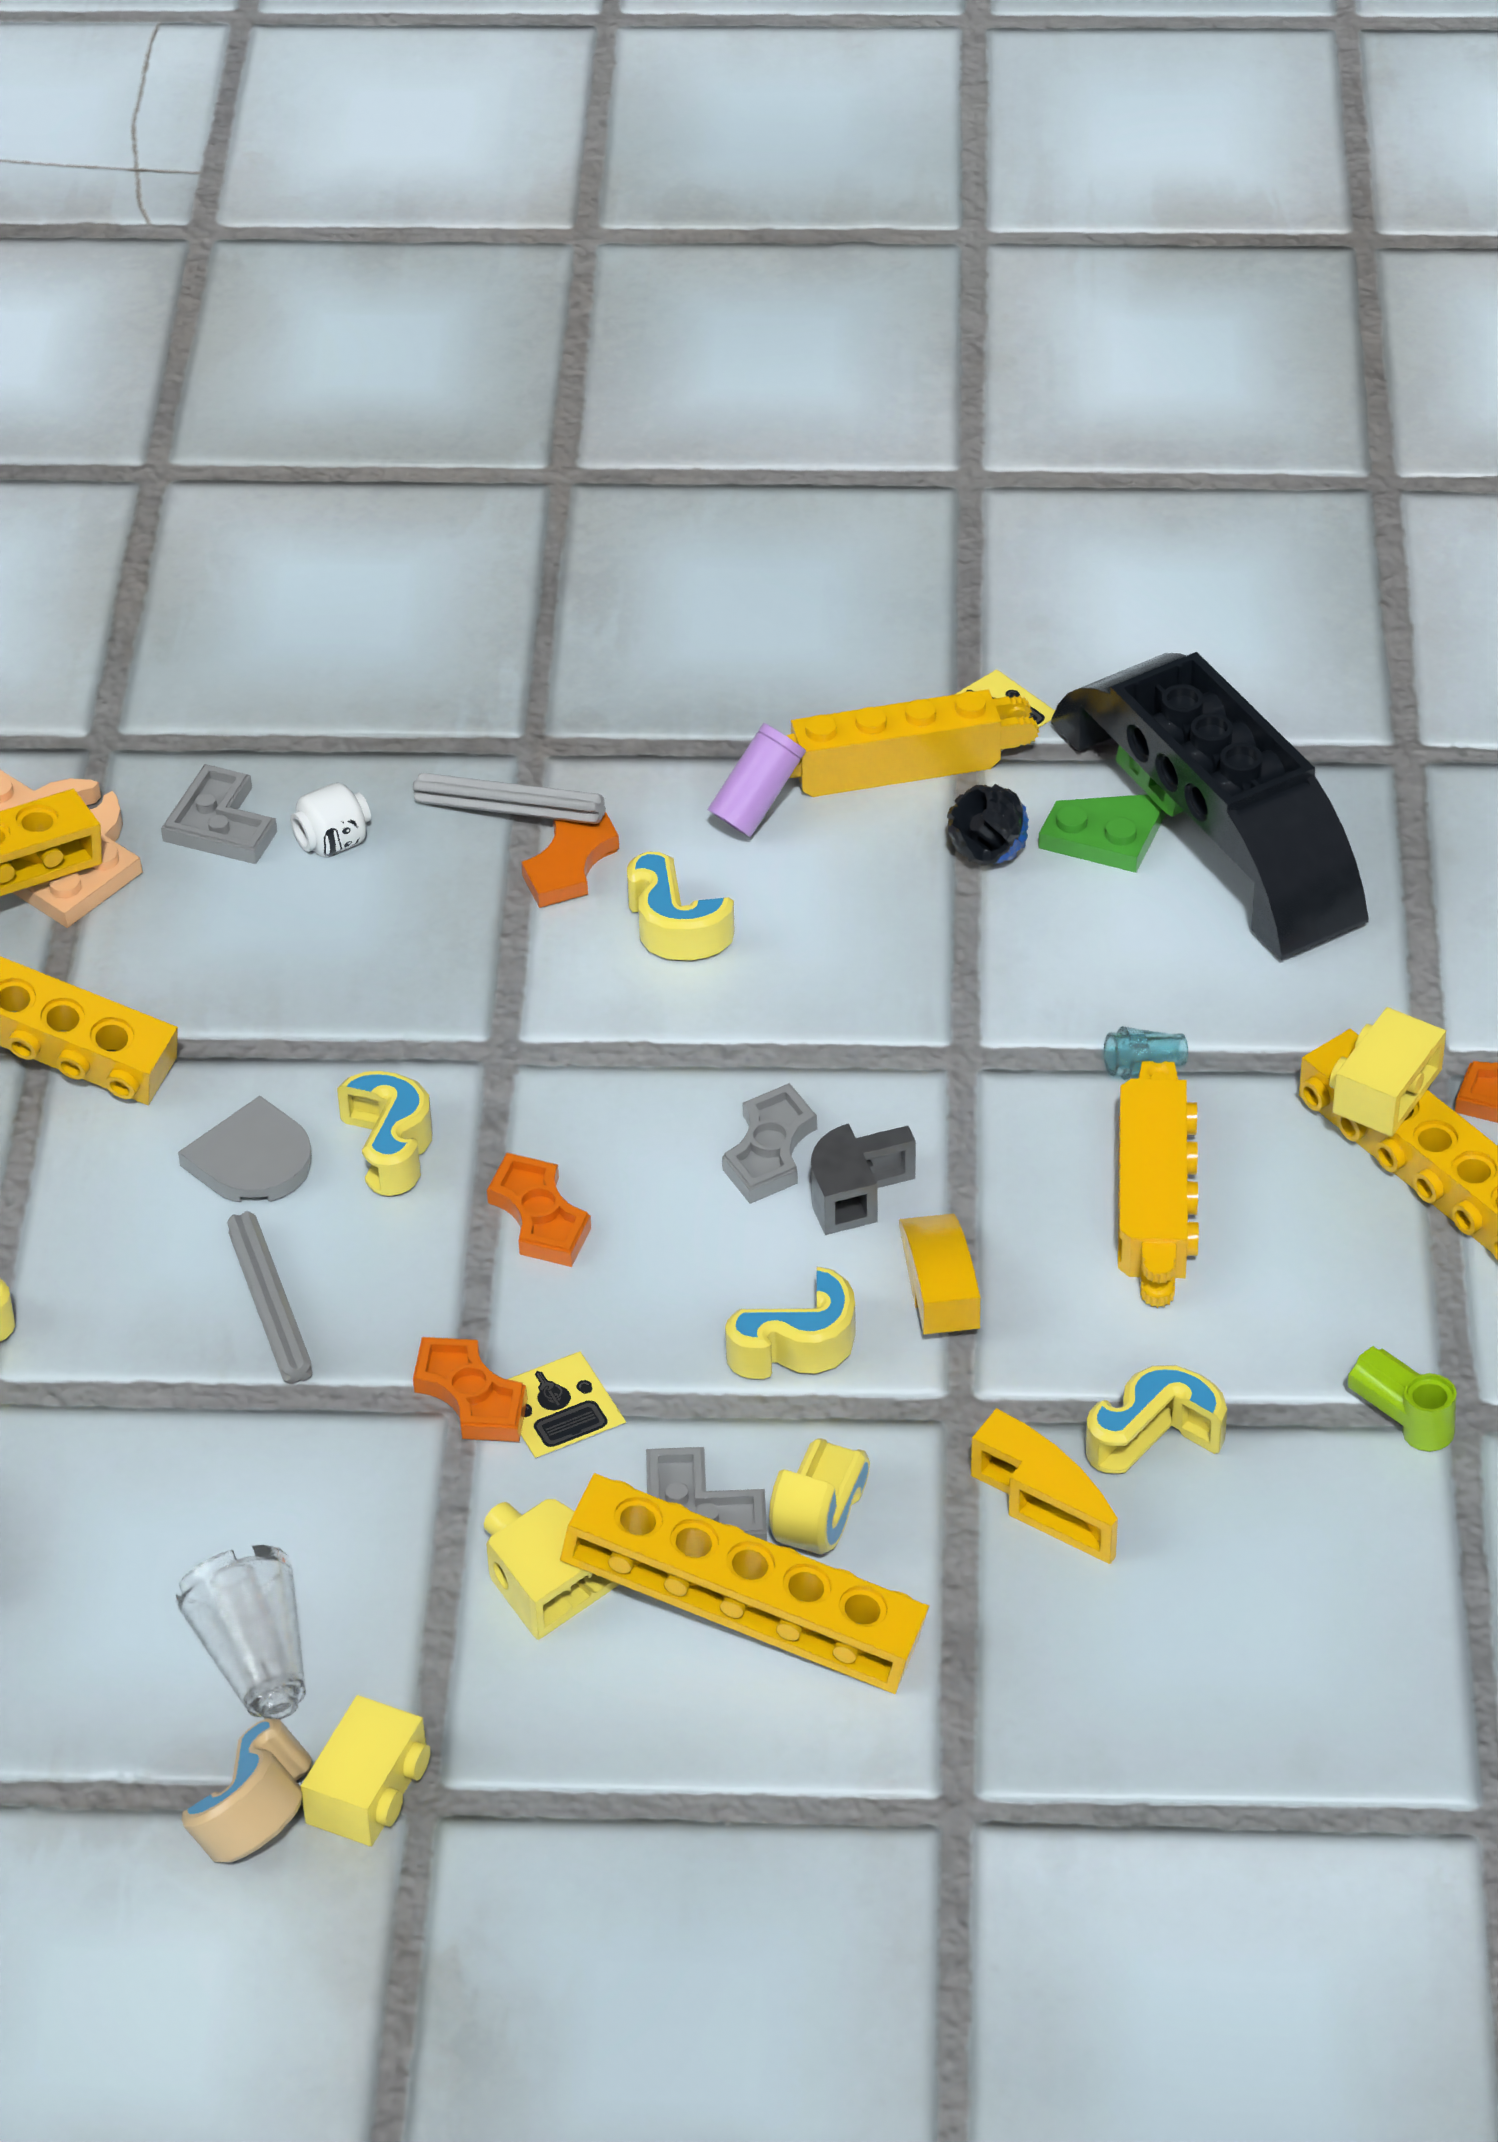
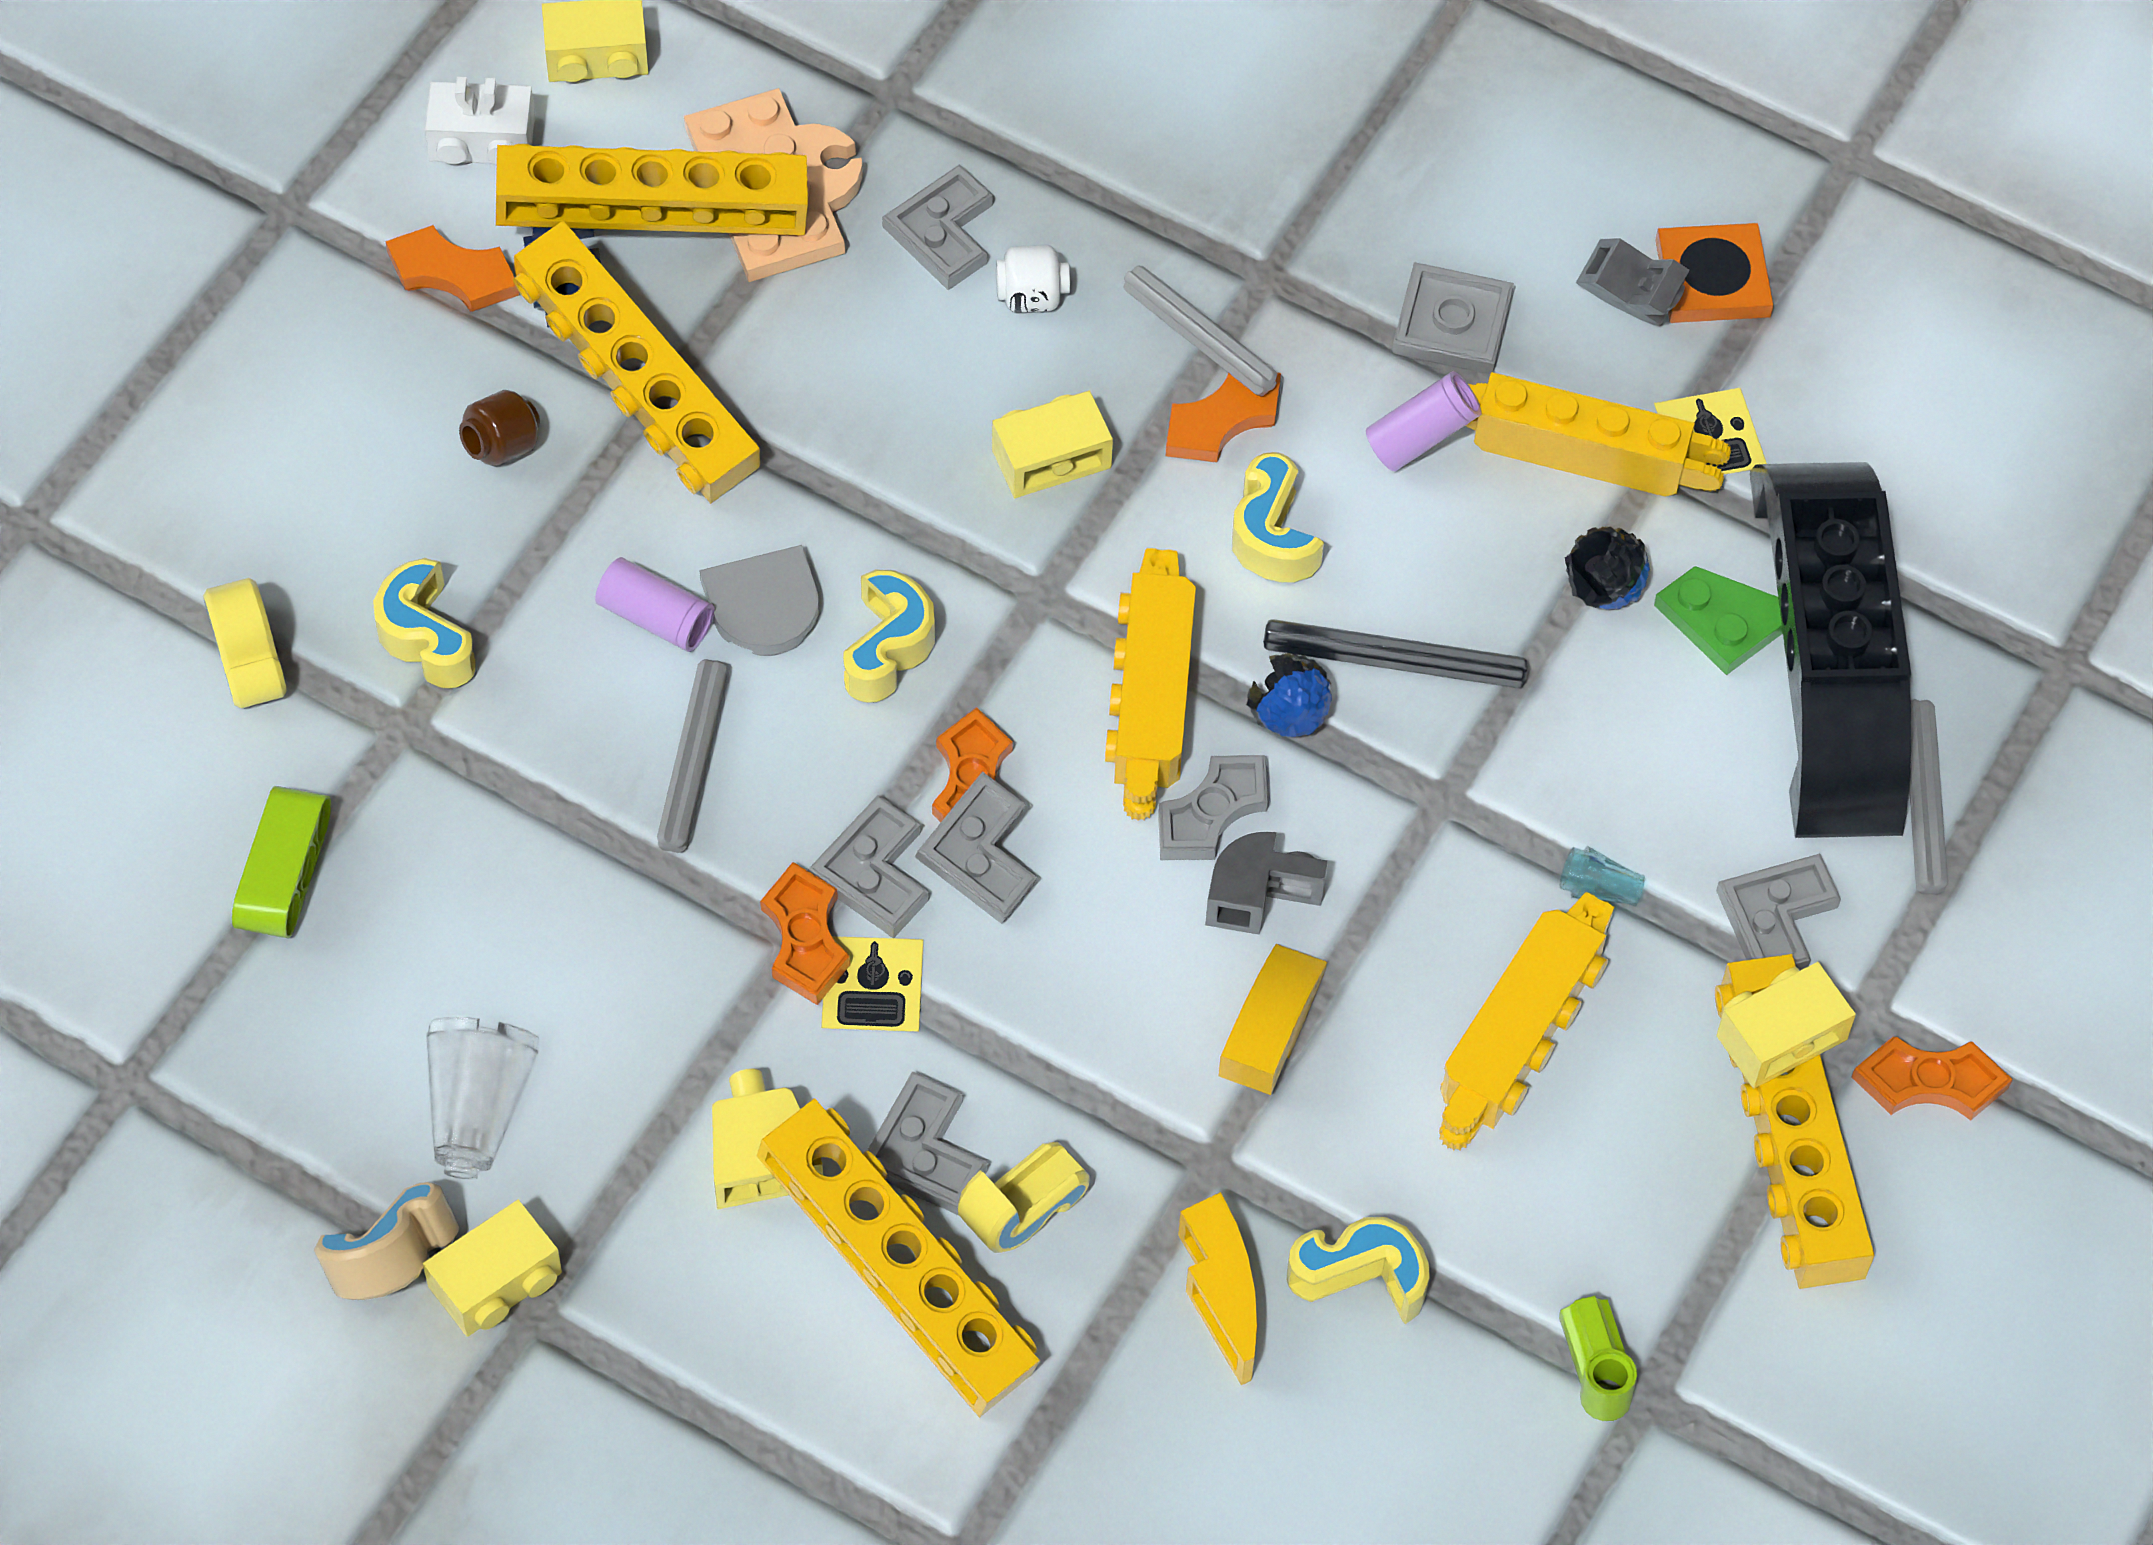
camera: 25 degrees right, 15 degrees up
(155, 1192) = (654, 604): none -> lavender pin
(436, 931) = (1051, 443): none -> light yellow brick
(485, 1312) = (862, 869): none -> light grey tile
(579, 1264) = (966, 854): none -> light grey tile
(653, 1067) = (1154, 681): none -> yellow hinge
(716, 710) = (1452, 318): none -> light grey tile
(791, 1026) = (1295, 699): none -> blue piece
(795, 1338) = (1108, 1028): light yellow animal -> none
(846, 965) = (1395, 653): none -> axle
(858, 620) = (1633, 280): none -> flat silver brick
(916, 596) = (1724, 274): none -> orange tile
(1299, 1010) = (1768, 902): none -> light grey tile
(1392, 913) = (1926, 801): none -> light grey axle

